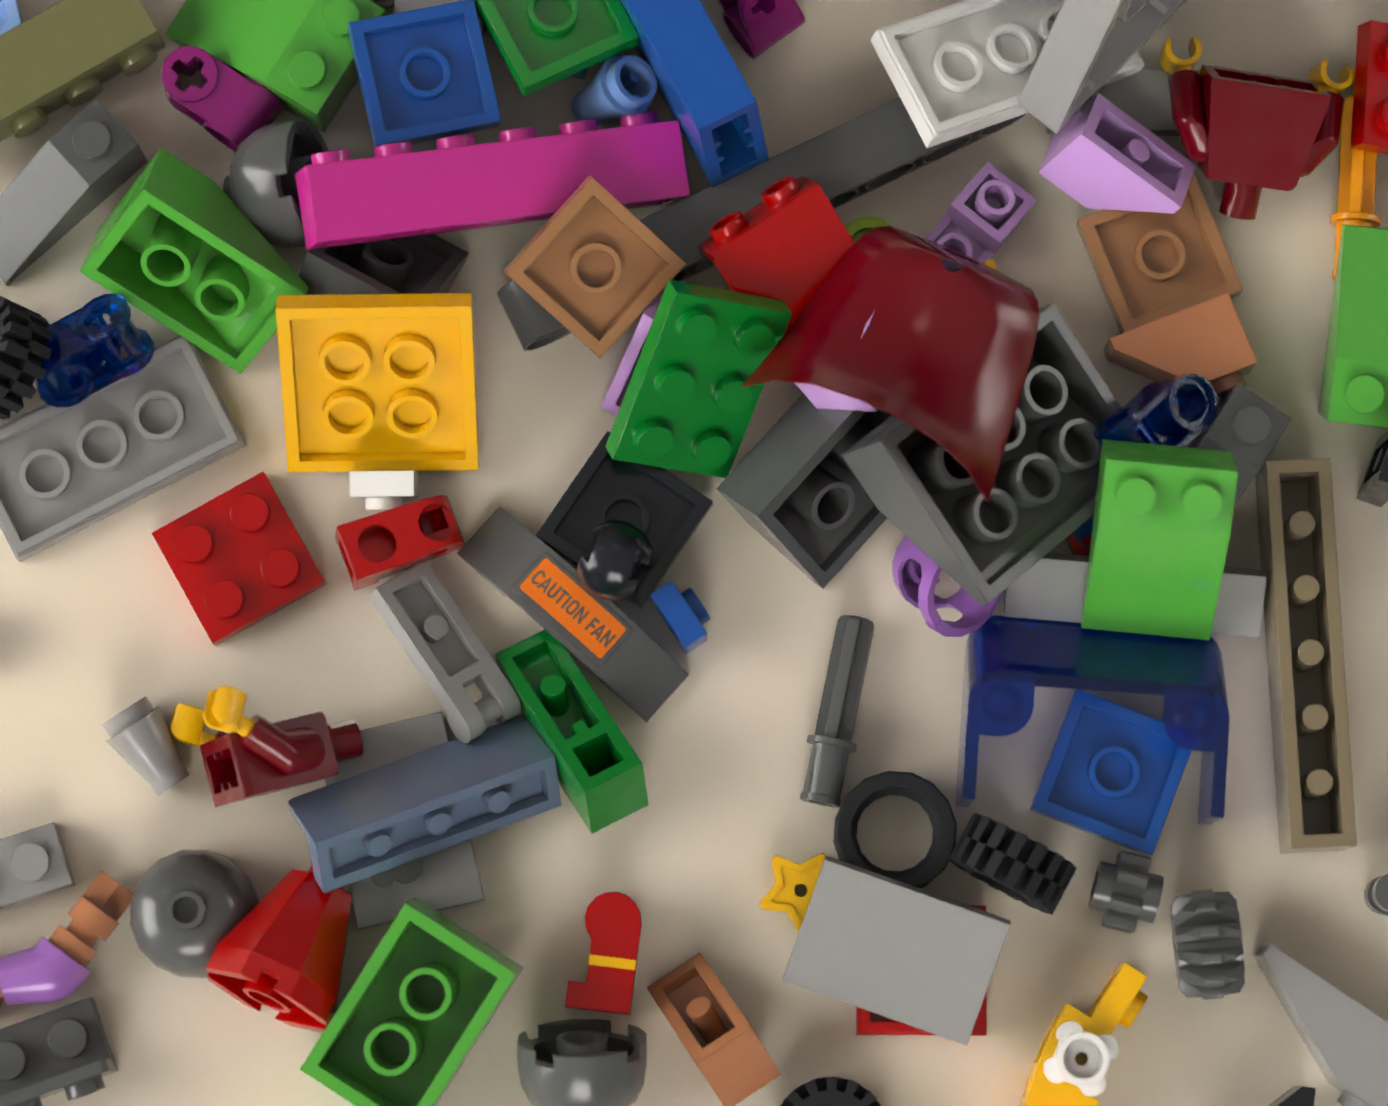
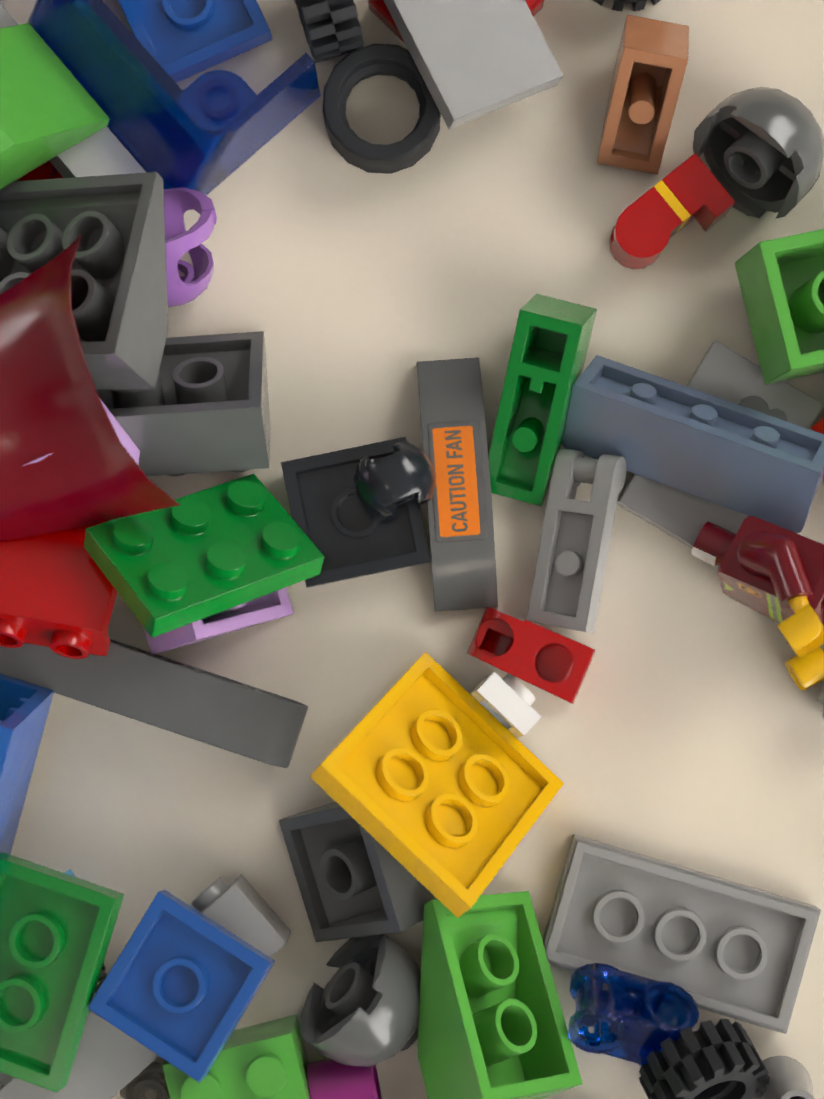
camera: 135 degrees left, 5 degrees up
(239, 558) = (658, 754): red plate -> none
(486, 183) = (214, 852): dark pink brick -> none
(594, 266) = (197, 711): medium nougat plate -> none
(617, 90) = (51, 832): medium blue cone -> none
(682, 615) = (381, 402): blue plate -> none
(787, 877) = (488, 152): yellow plate -> none
(838, 711) = (338, 232): dark grey axle -> none

